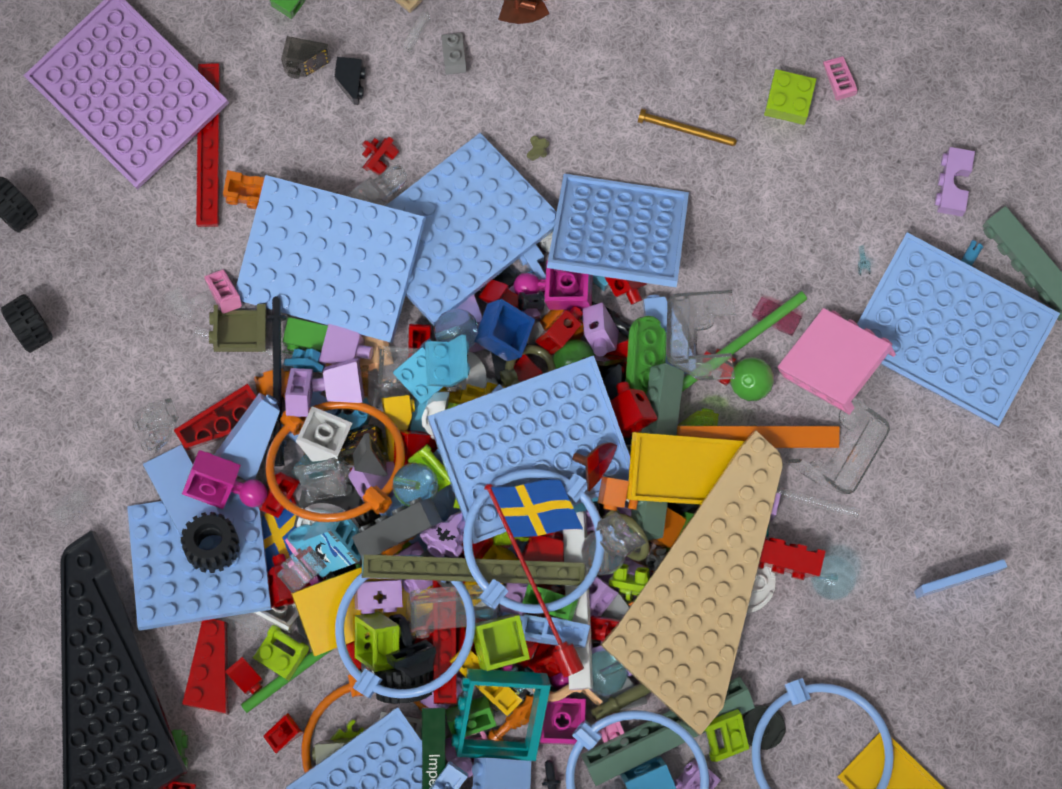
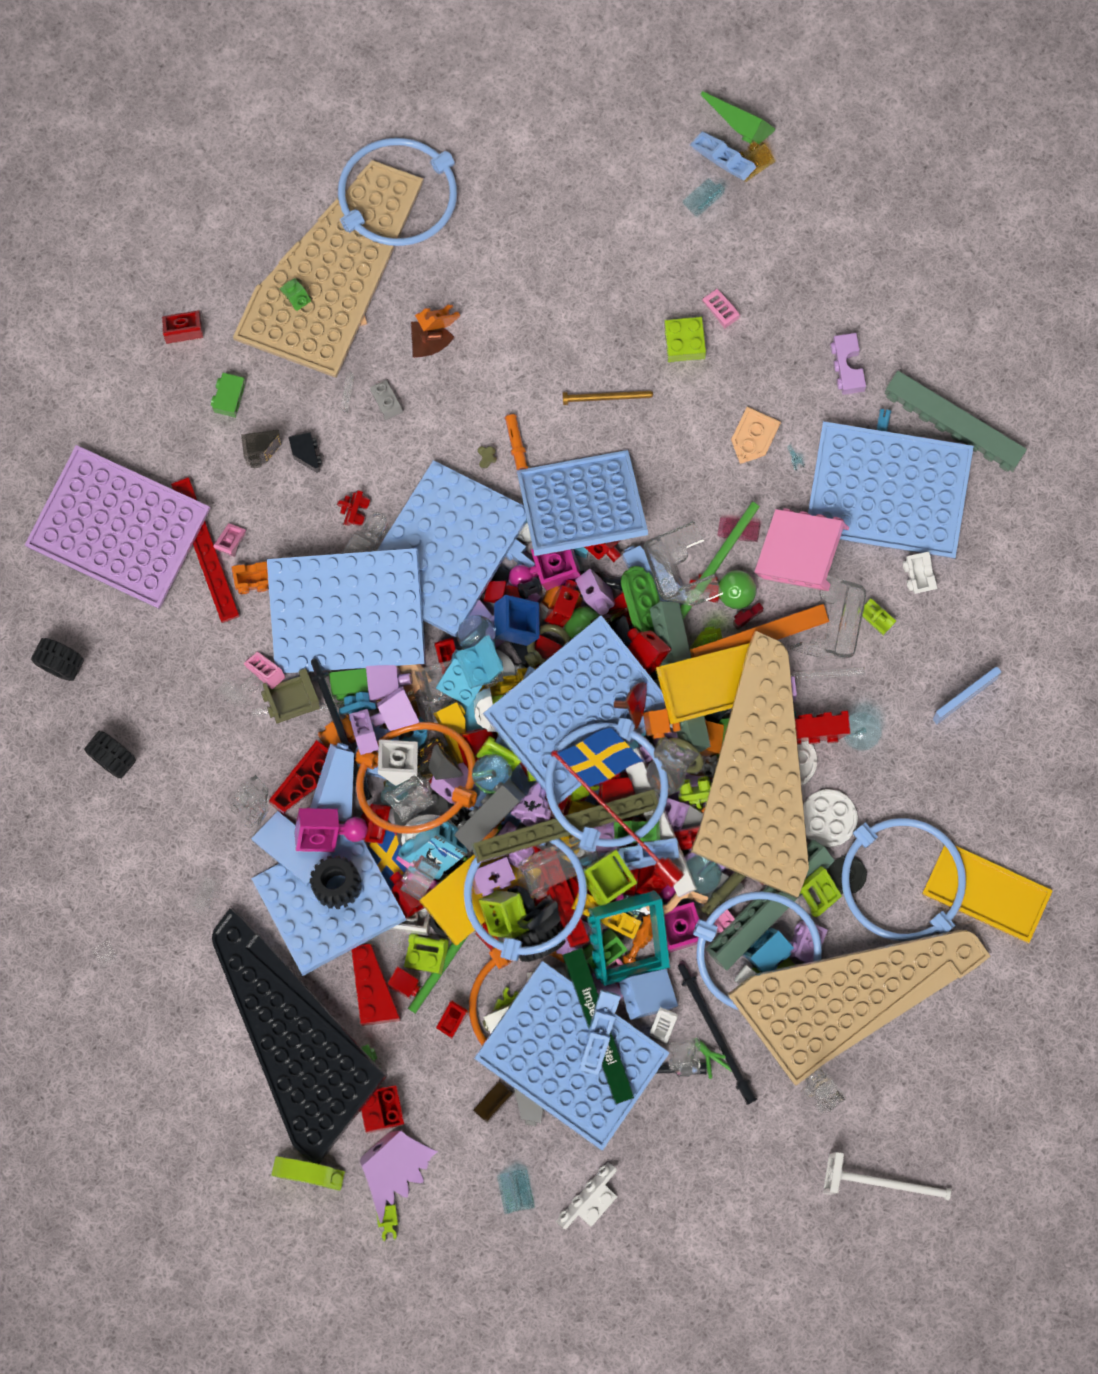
camera: 15 degrees left, 0 degrees up
(237, 142) = (230, 539): none -> bright pink slope
(573, 149) = (518, 450): none -> orange pin
(748, 411) = (744, 617): none -> dark red plate
(765, 658) = (829, 817): none -> white tile
(827, 222) = (754, 435): none -> light nougat tile
(893, 461) = (877, 617): none -> lime hips
(954, 429) = (919, 572): none -> white cylinder

